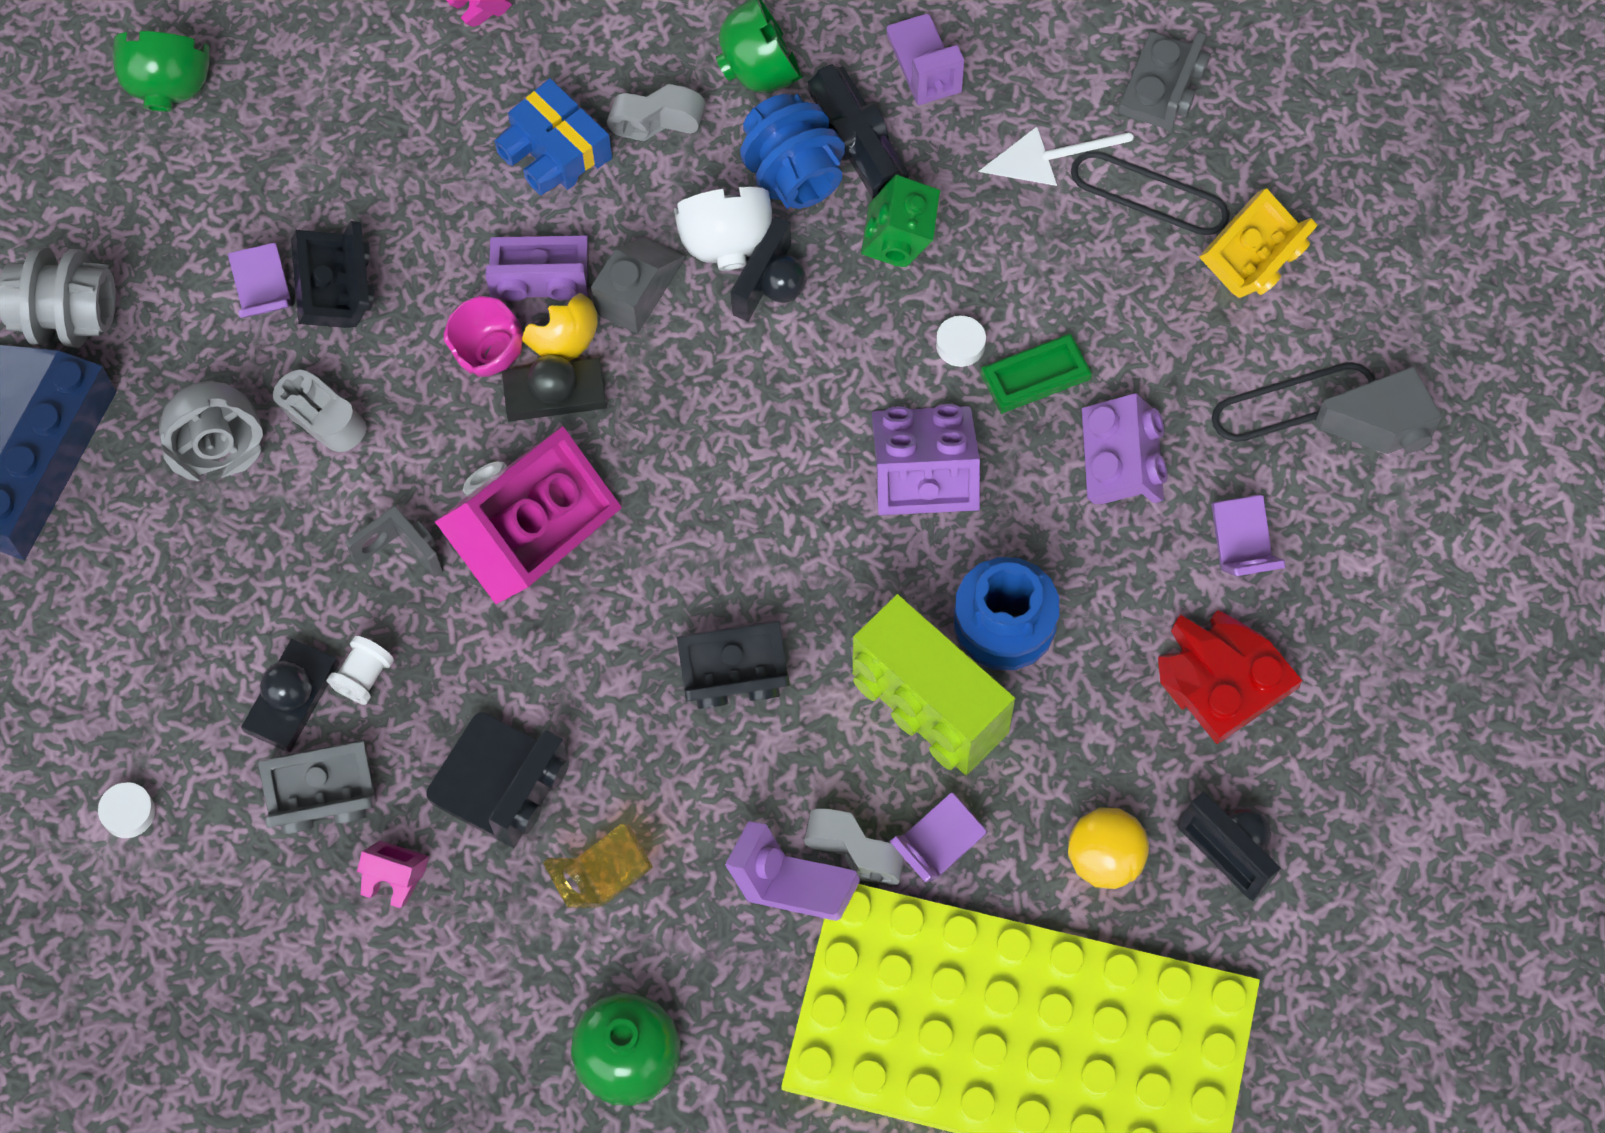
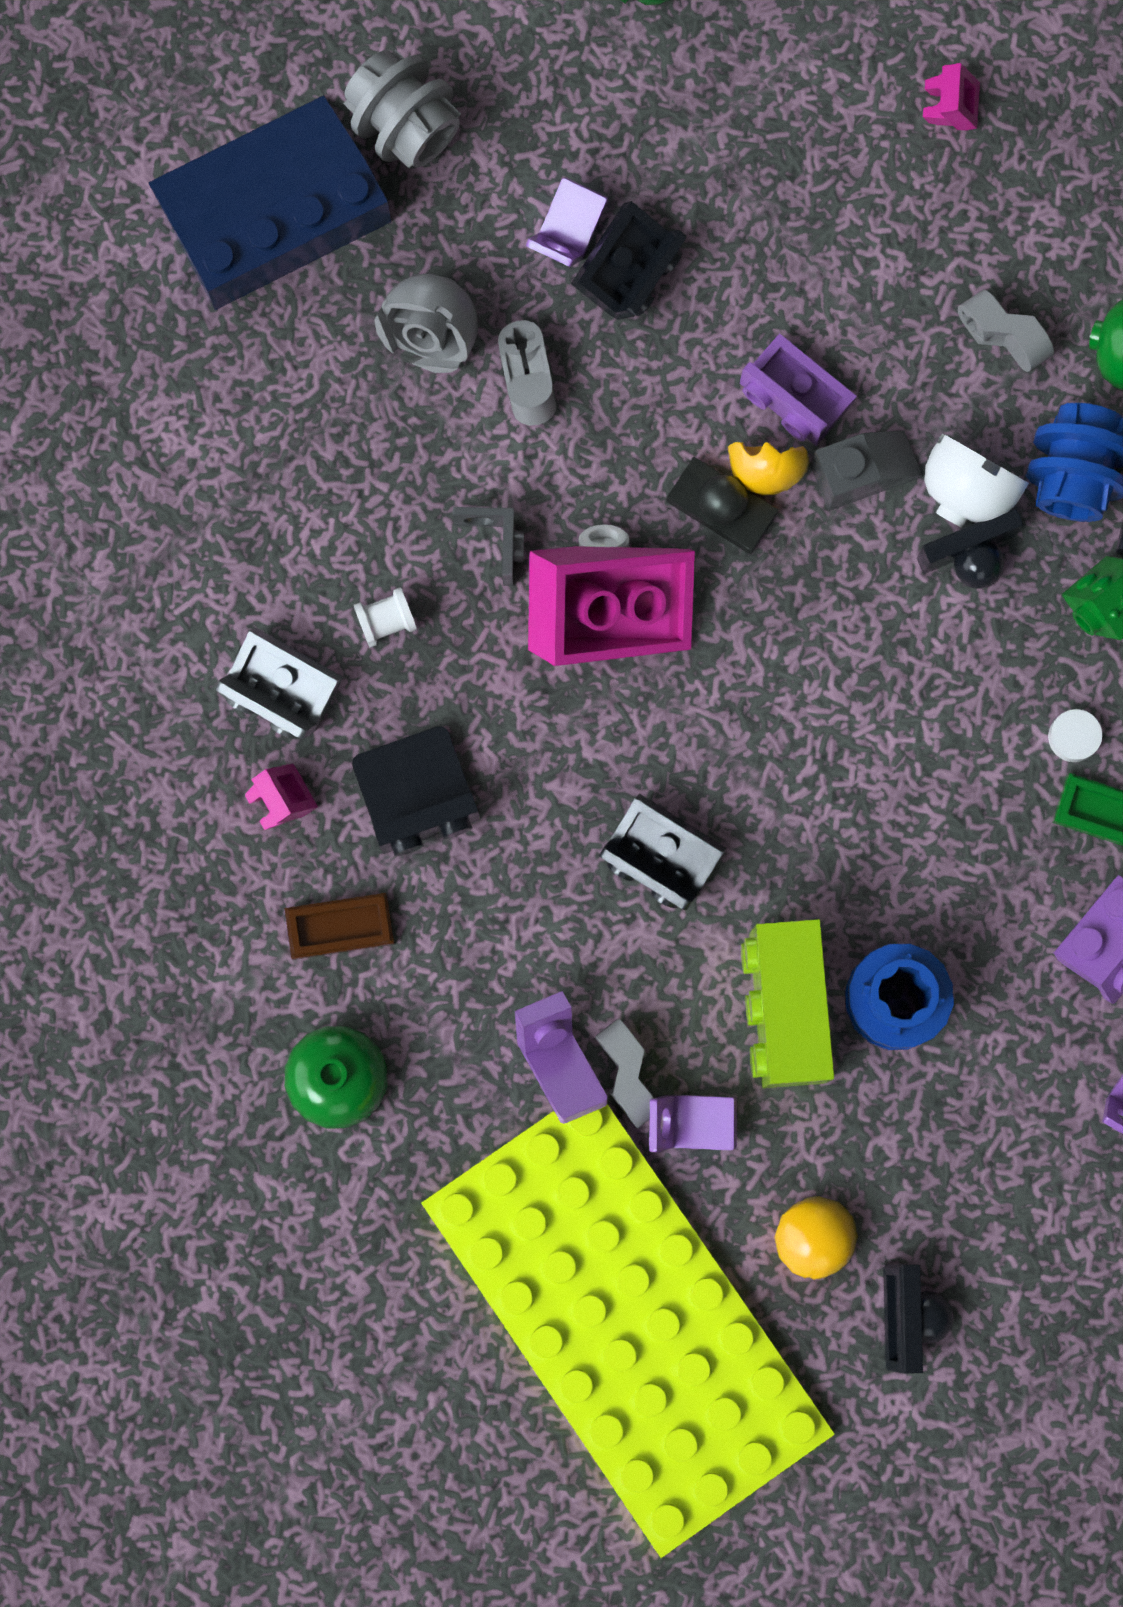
camera: 40 degrees right, 15 degrees up
(126, 810) = (132, 581): white tile -> none
(289, 695) = (320, 591): black tile -> none
(475, 328) = (698, 403): dark pink hair -> none
(524, 933) = (339, 926): none -> reddish brown tile
(556, 135) = (908, 285): blue hips -> none
(601, 870) = (428, 928): clear yellow bracket -> none
(926, 460) = (957, 811): medium lavender bracket -> none
(1225, 674) = (1027, 1184): red plate -> none

